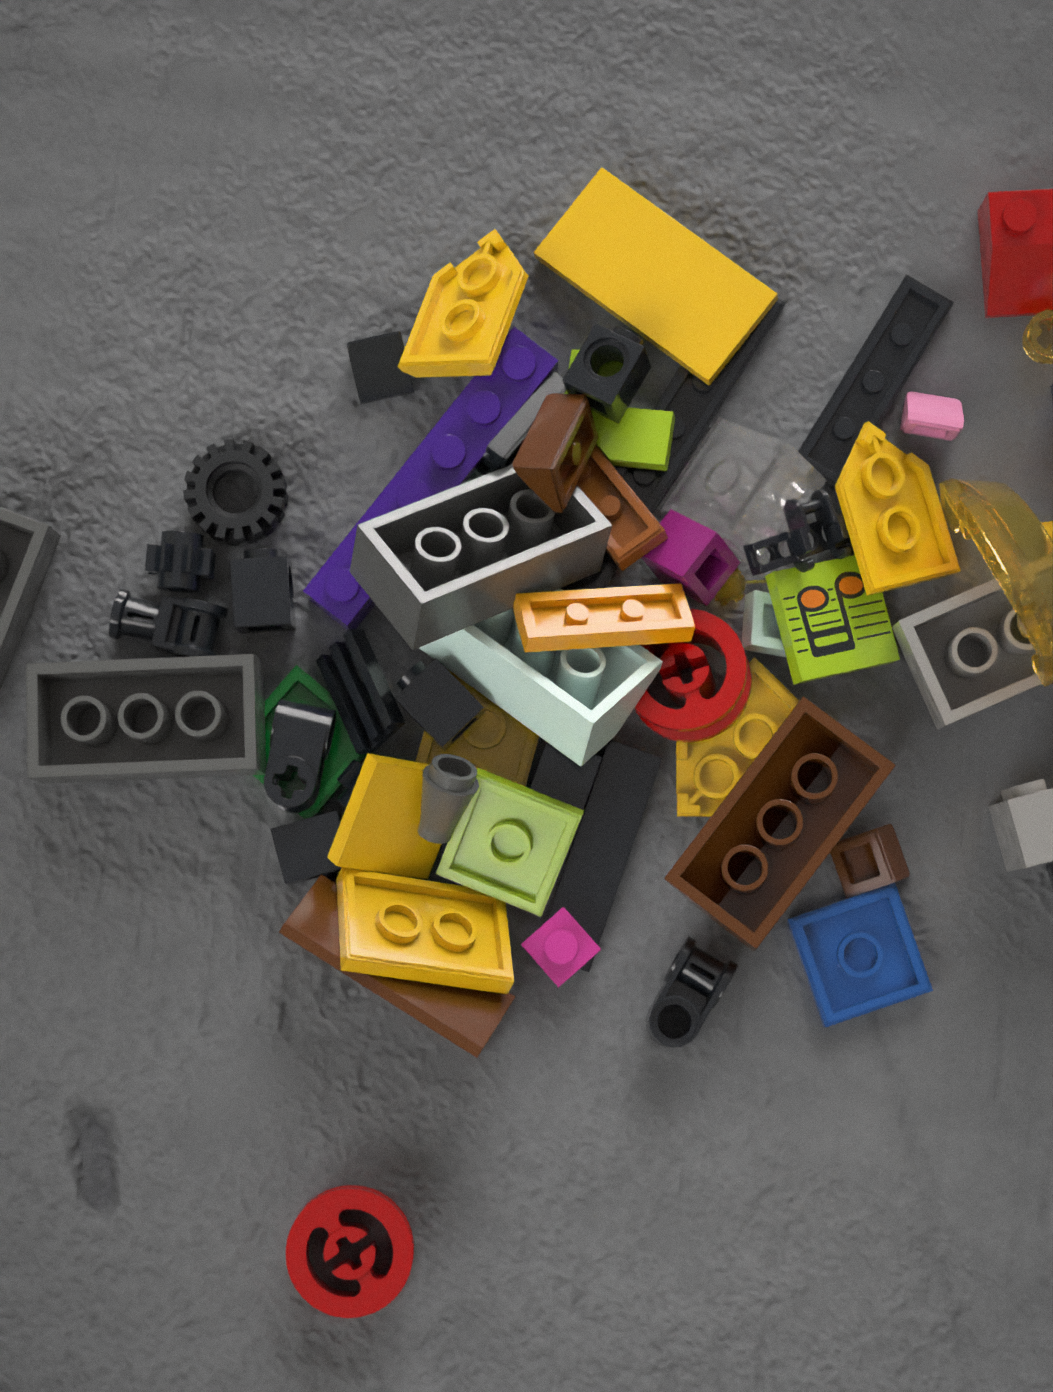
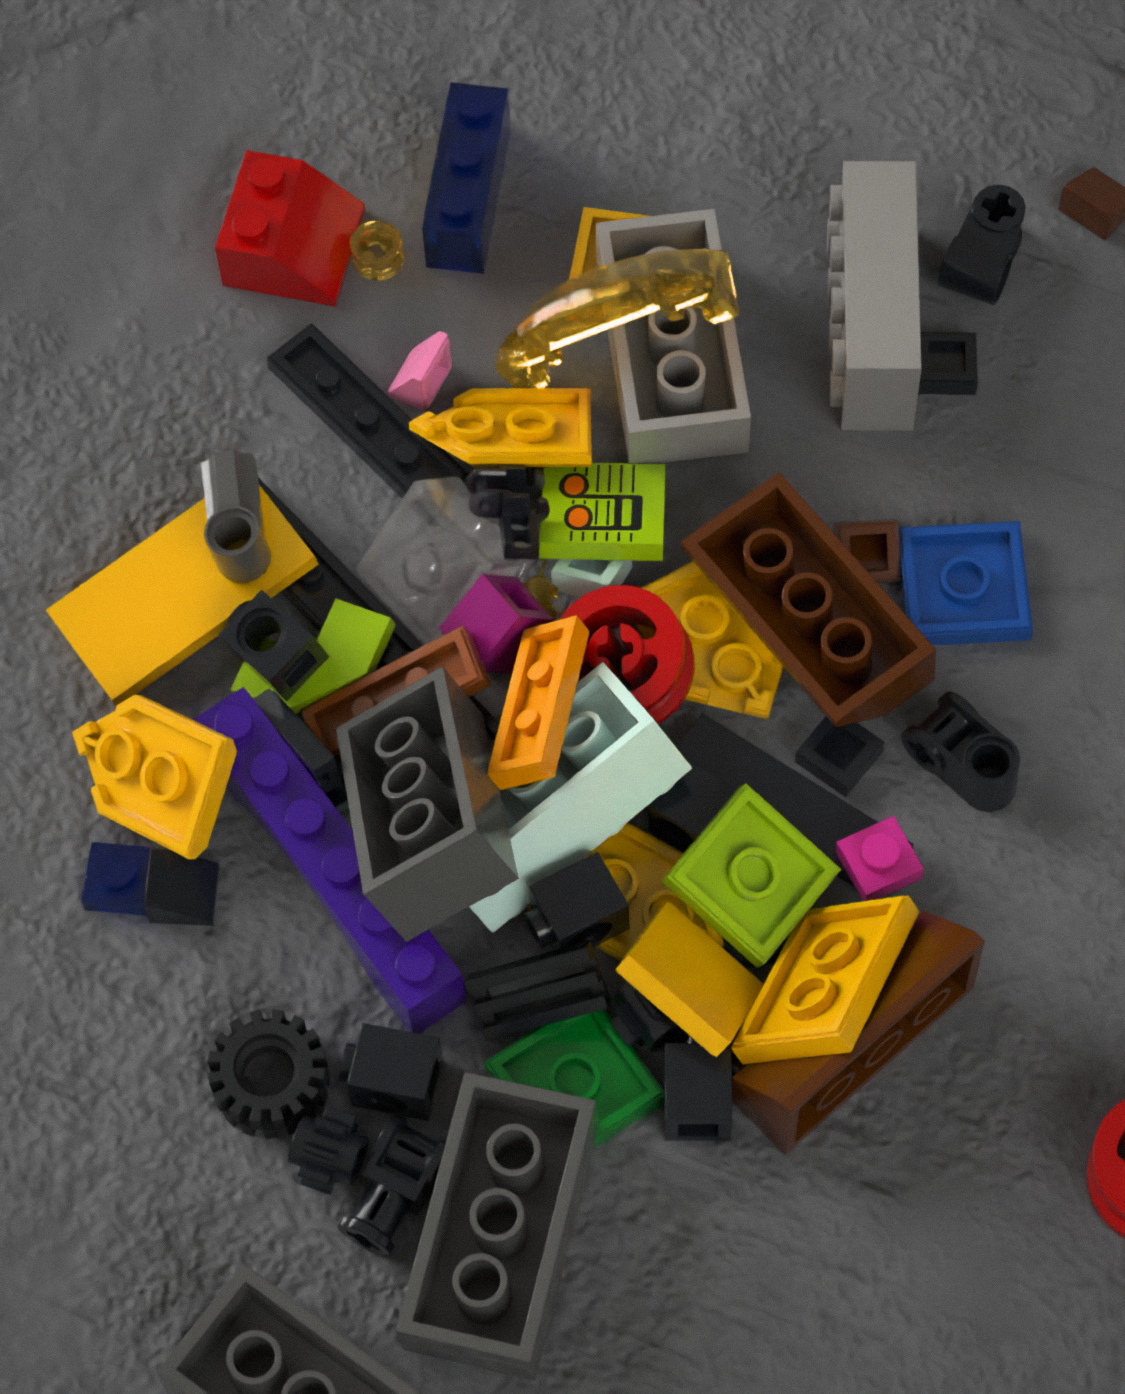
camera: 75 degrees left, 20 degrees down
(298, 744) = (585, 1065): black piece -> none
(377, 310) = (116, 878): none -> clear blue plate
(446, 793) = (684, 910): dark grey cone -> none
(557, 448) = (338, 701): reddish brown slope -> none
(653, 892) = (839, 754): none -> black tile
(723, 295) = (234, 514): none -> dark grey piece

